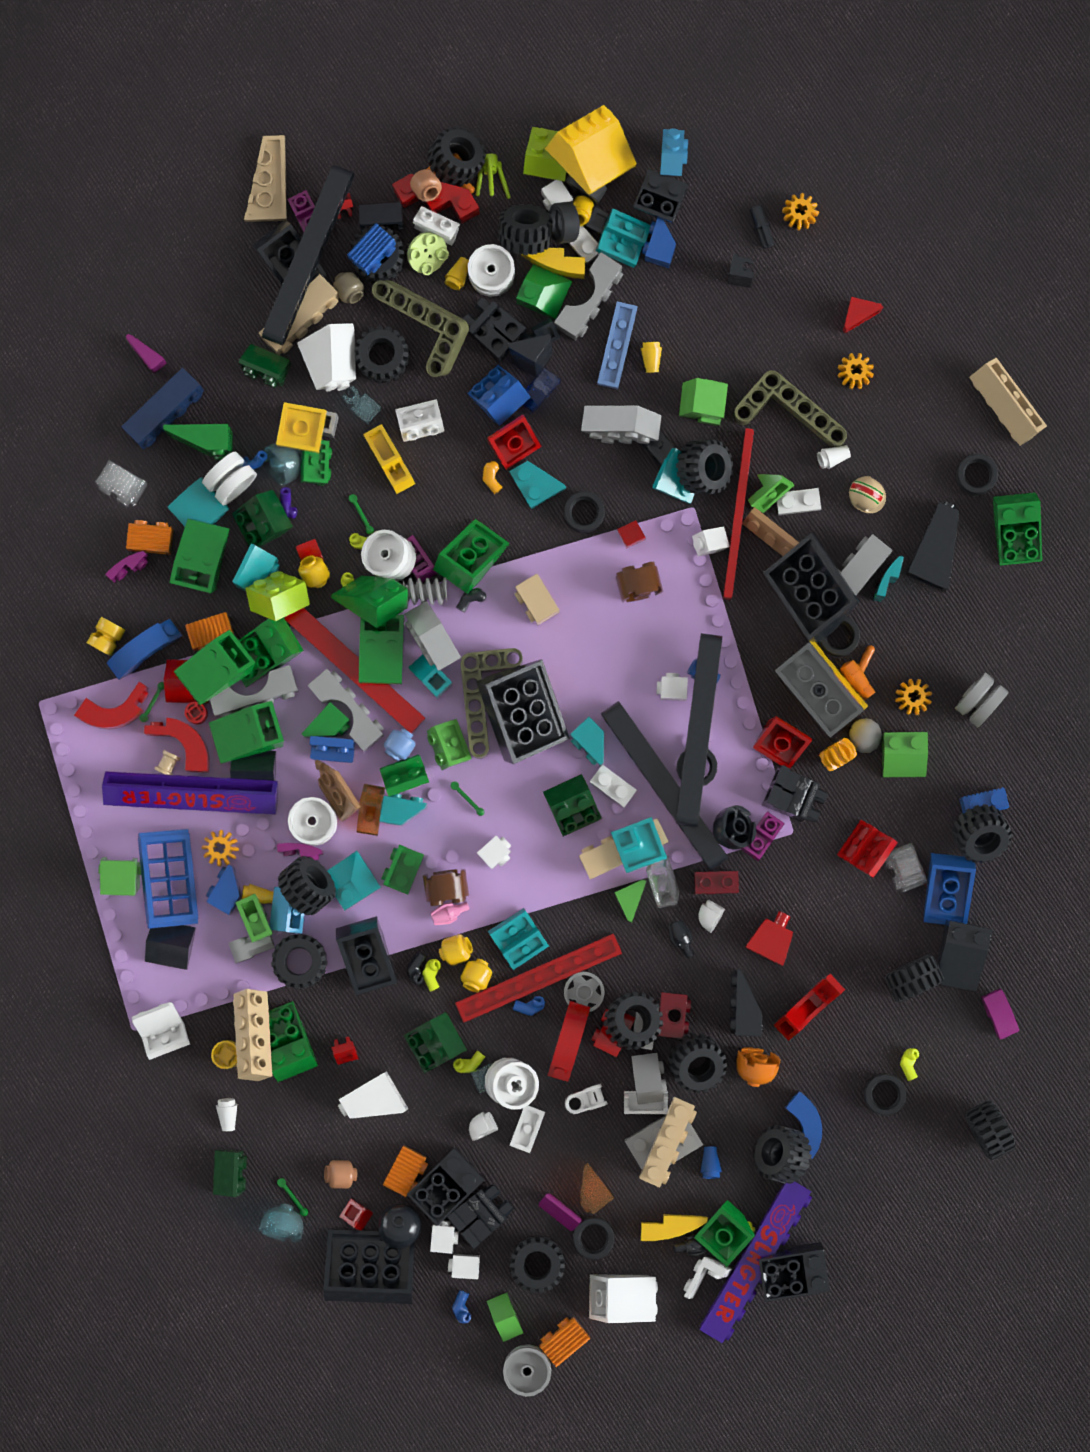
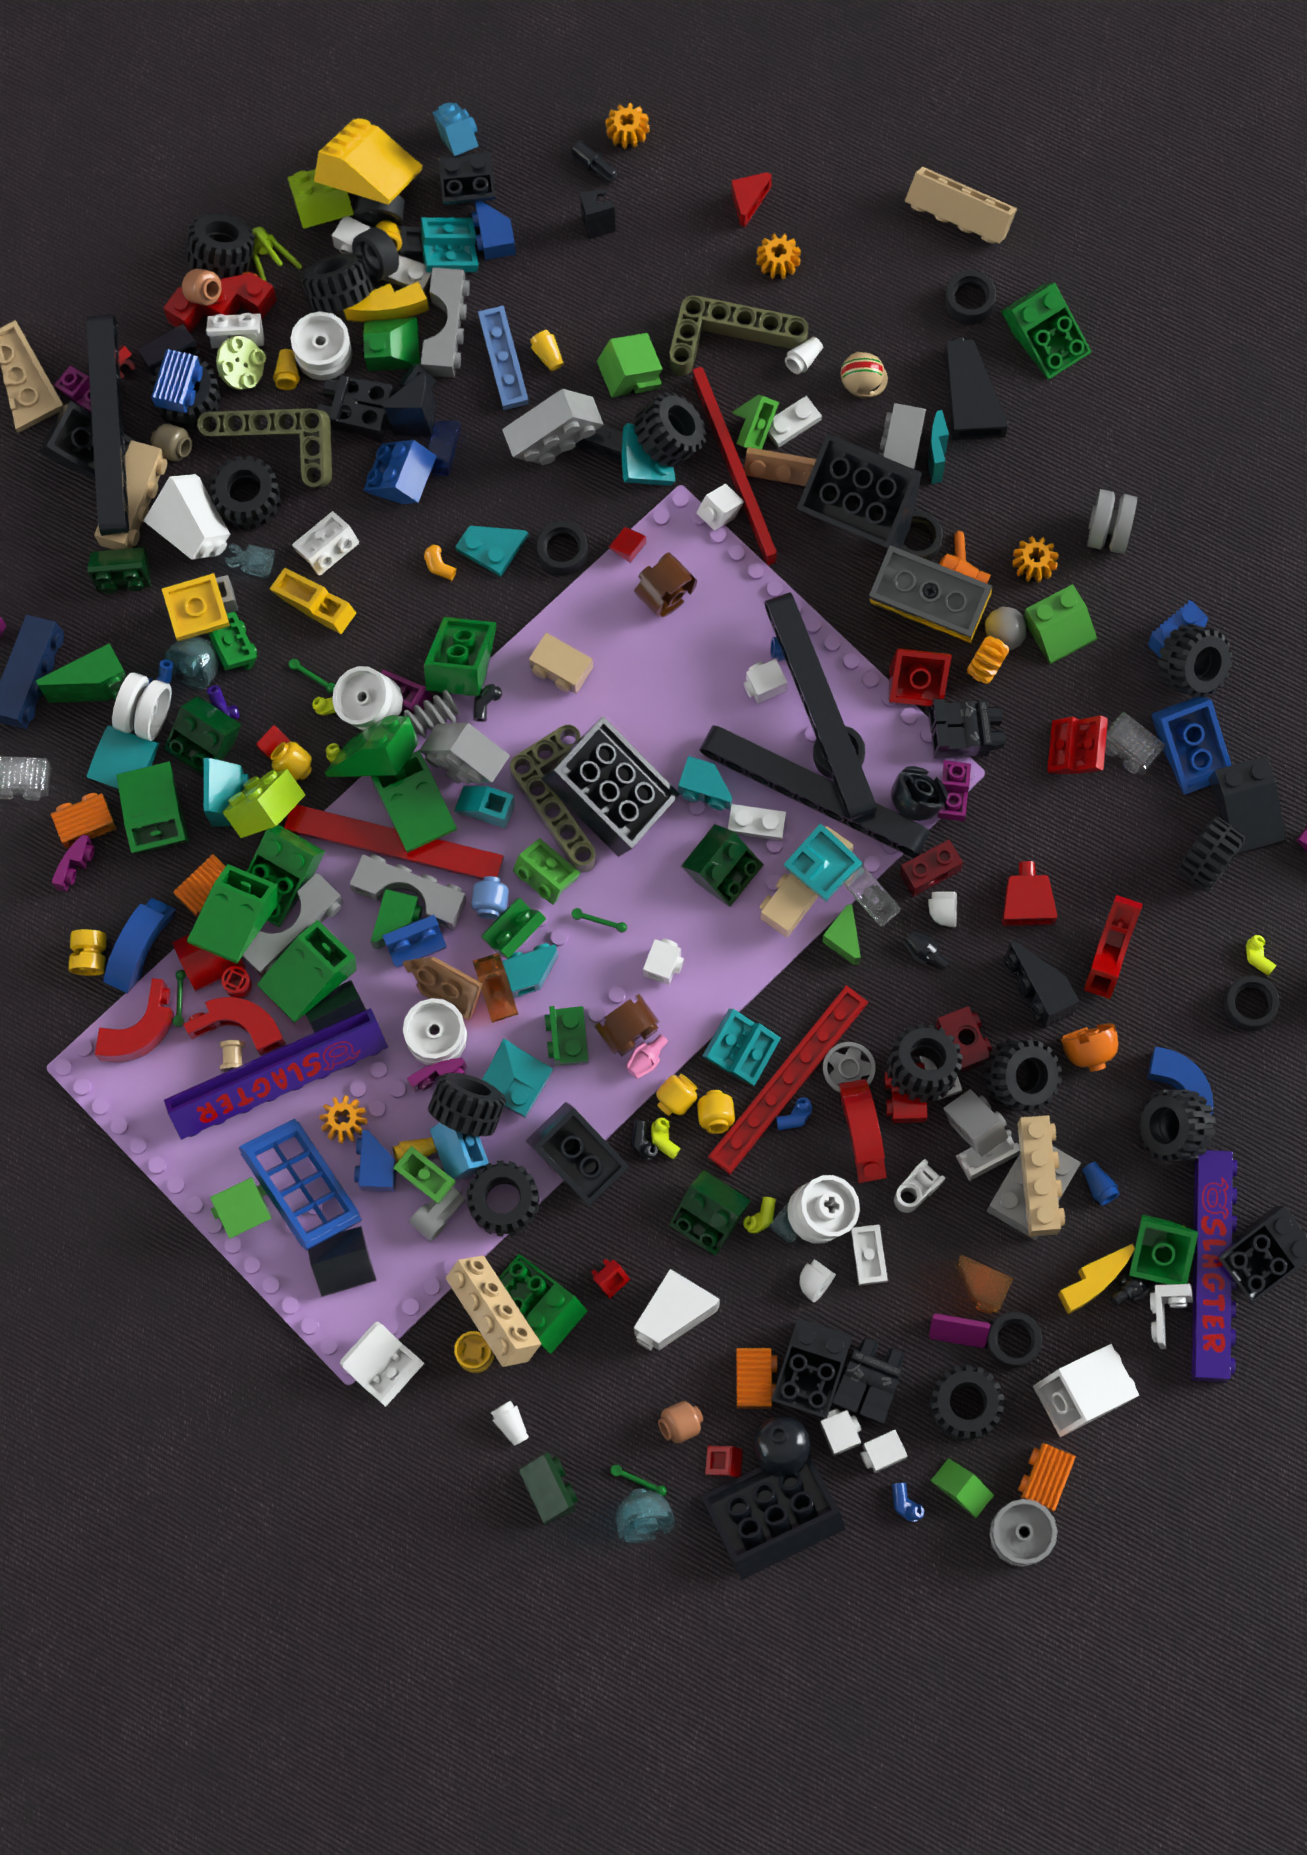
camera: 30 degrees left, 10 degrees down
(514, 442) = (442, 512): red slope -> none

